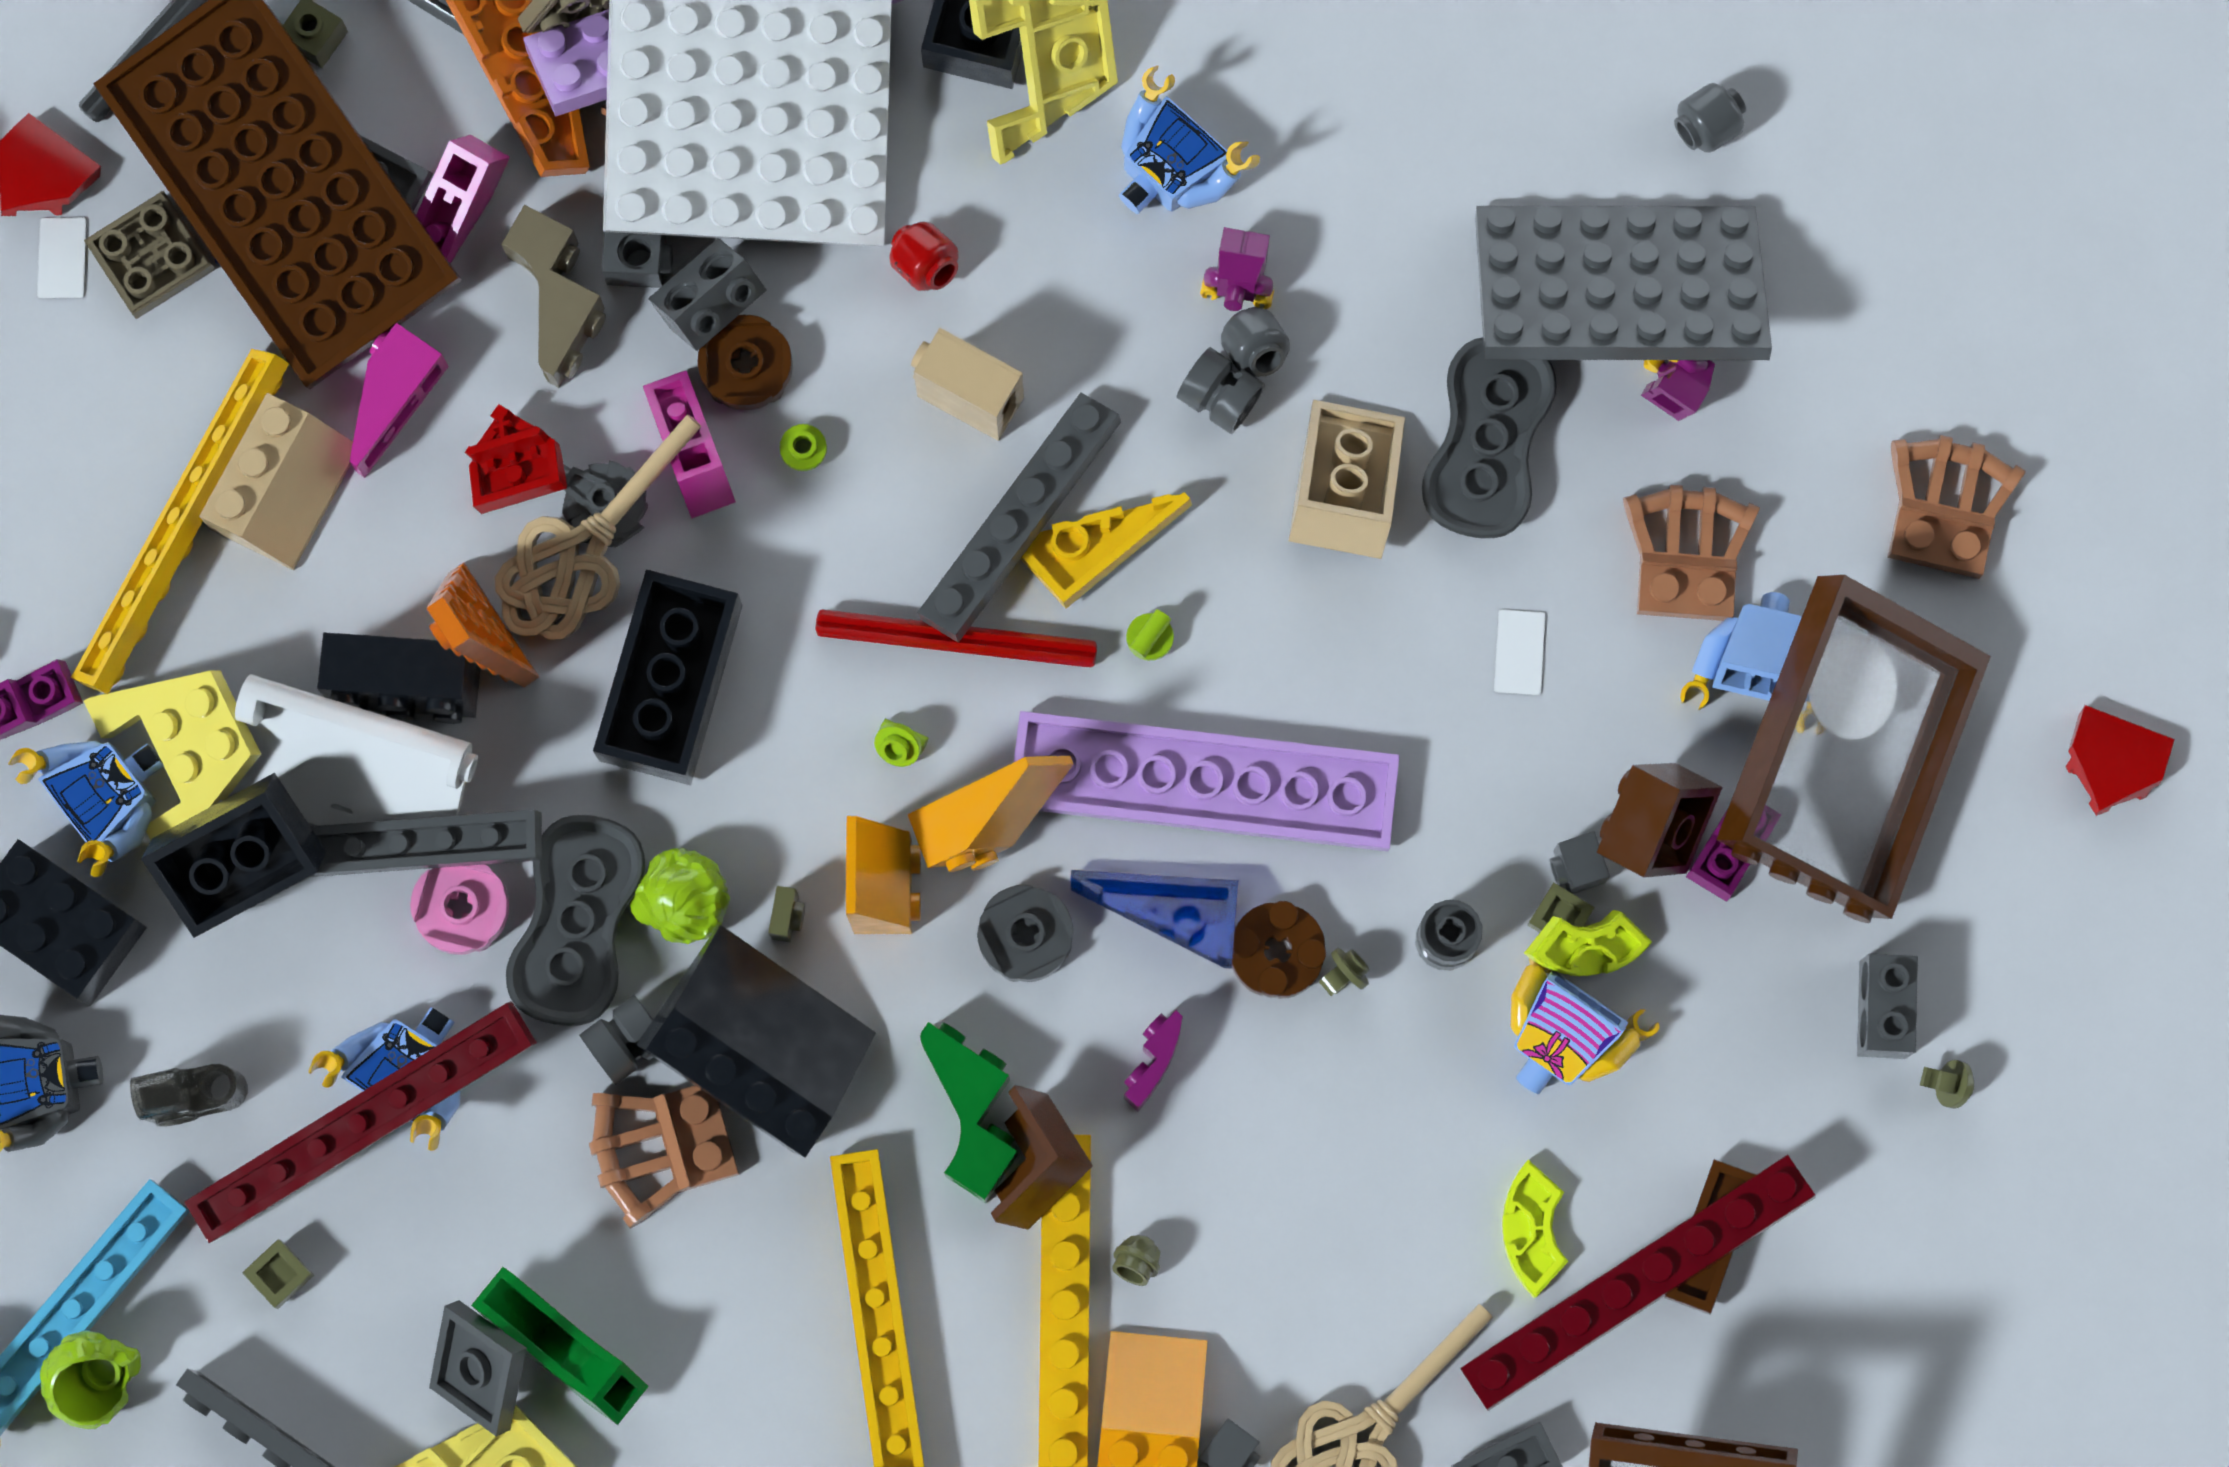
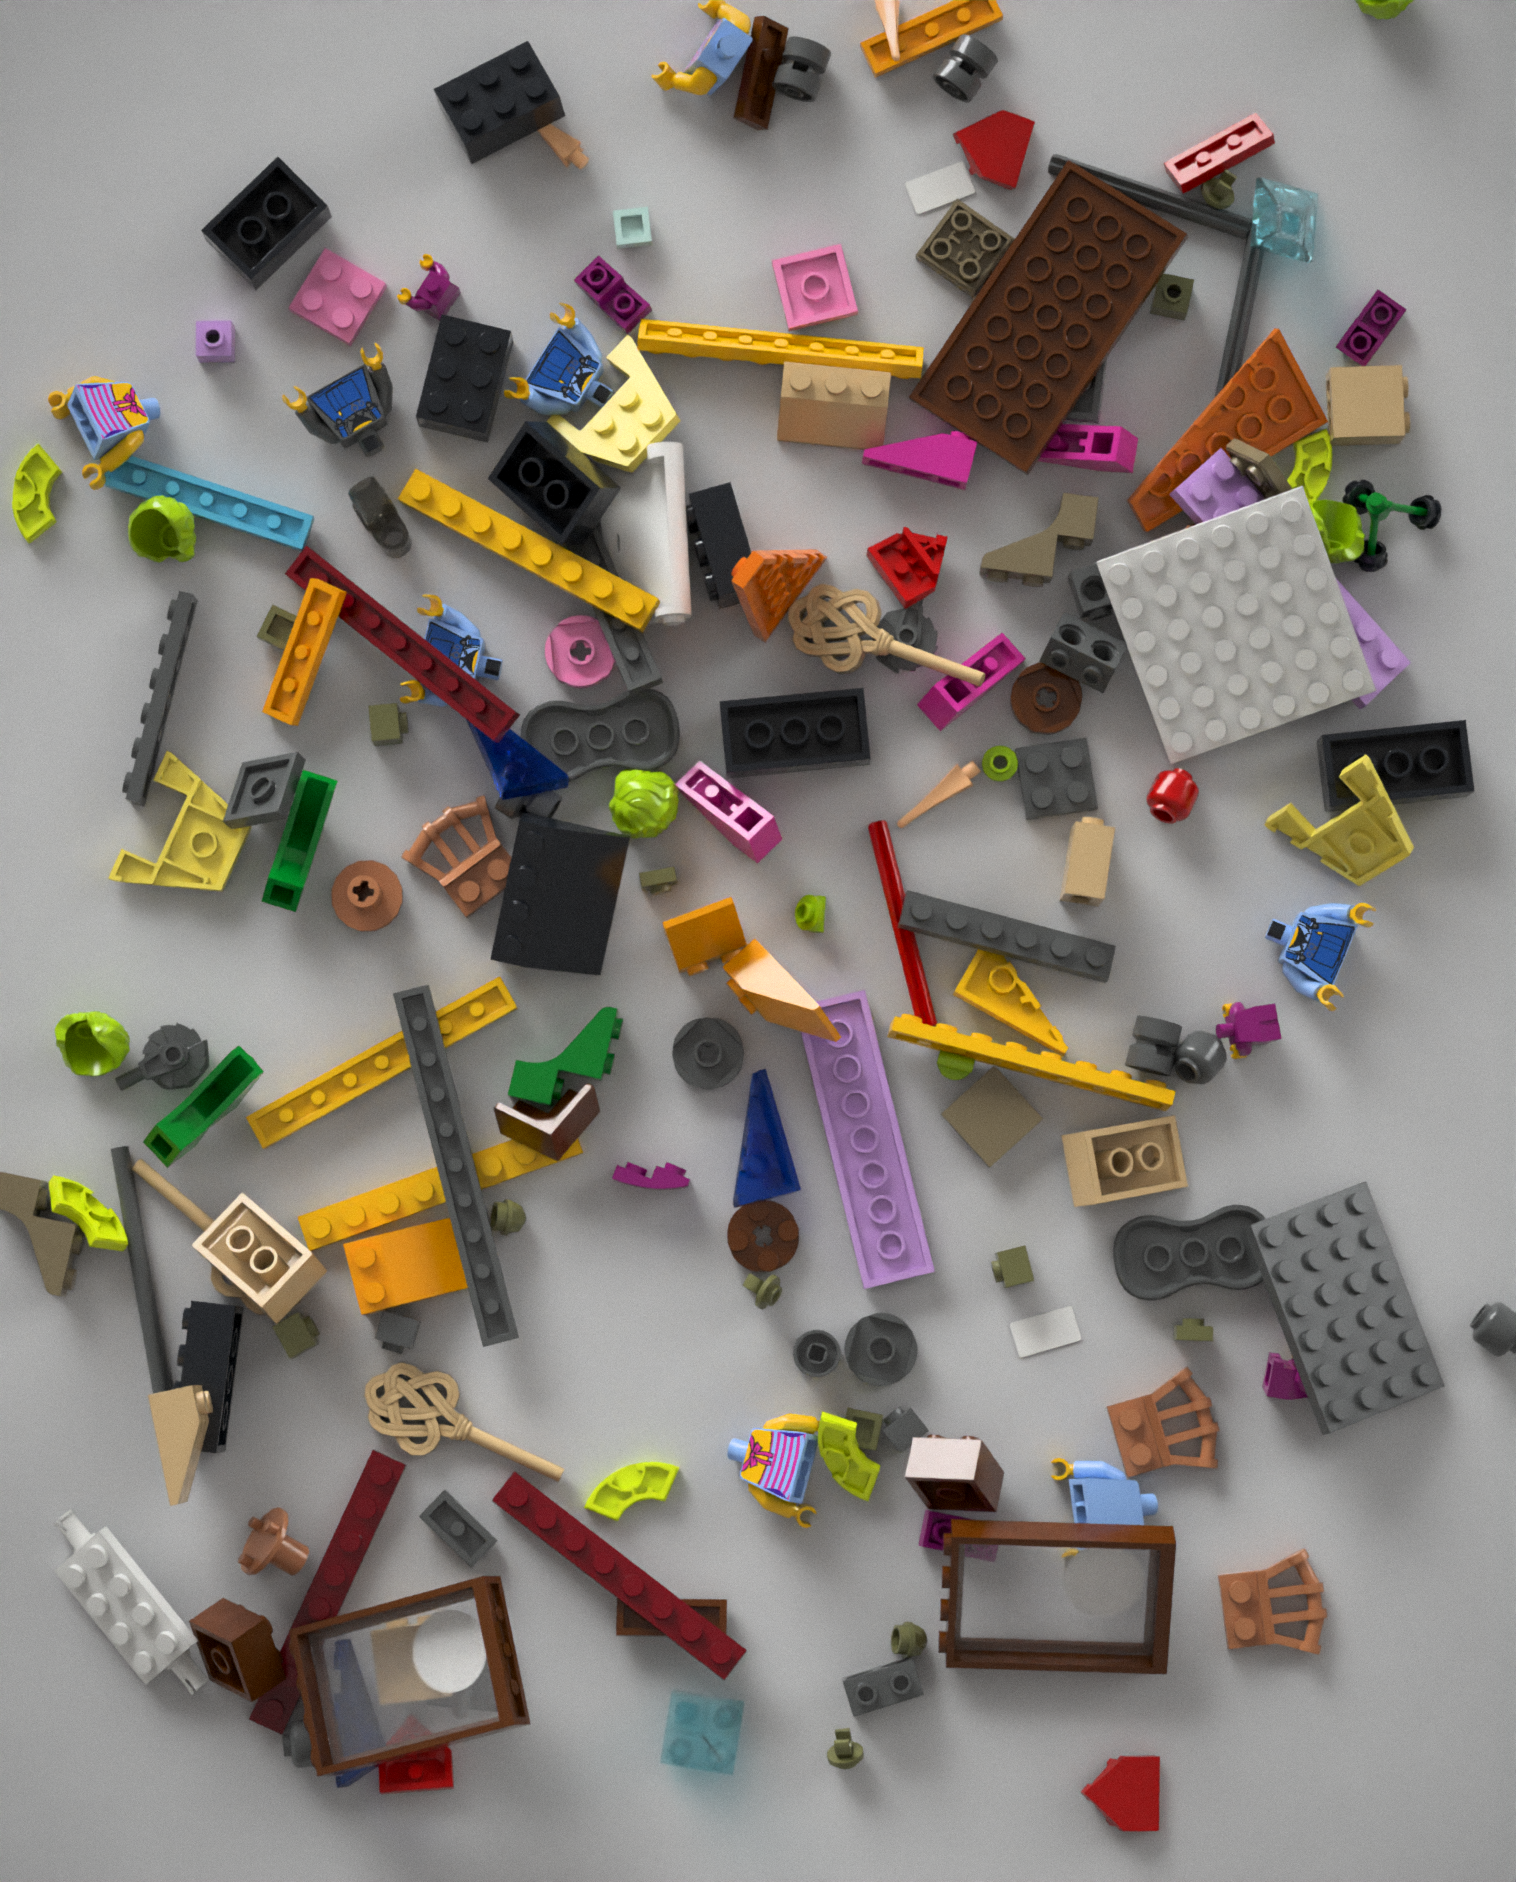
camera: 70 degrees right, 5 degrees up
(121, 451) = (814, 287): none -> bright pink plate
(305, 921) = (529, 550): none -> yellow plate
(319, 1252) = (304, 651): none -> light orange plate
(454, 1181) = (387, 724): none -> olive plate
(571, 1035) = (518, 766): none -> clear blue wing
(662, 1289) = (367, 895): none -> nougat piece
(735, 793) = (730, 811): none -> dark pink slope
(806, 512) = (953, 783): none -> light nougat piece
(848, 387) = (1056, 779): none -> dark grey plate
(1049, 1297) = (456, 1165): none -> dark grey plate
(1175, 557) = (1044, 1066): none -> yellow plate
(1233, 616) = (991, 1116): none -> dark tan tile
(1428, 658) = (1012, 1267): none -> olive plate
(1465, 829) = (870, 1331): none -> dark grey plate
(1583, 473) = (1192, 1330): none -> olive plate
(1840, 955) = (908, 1640): none -> olive plate
(1866, 1251) = (702, 1731): none -> clear light blue slope

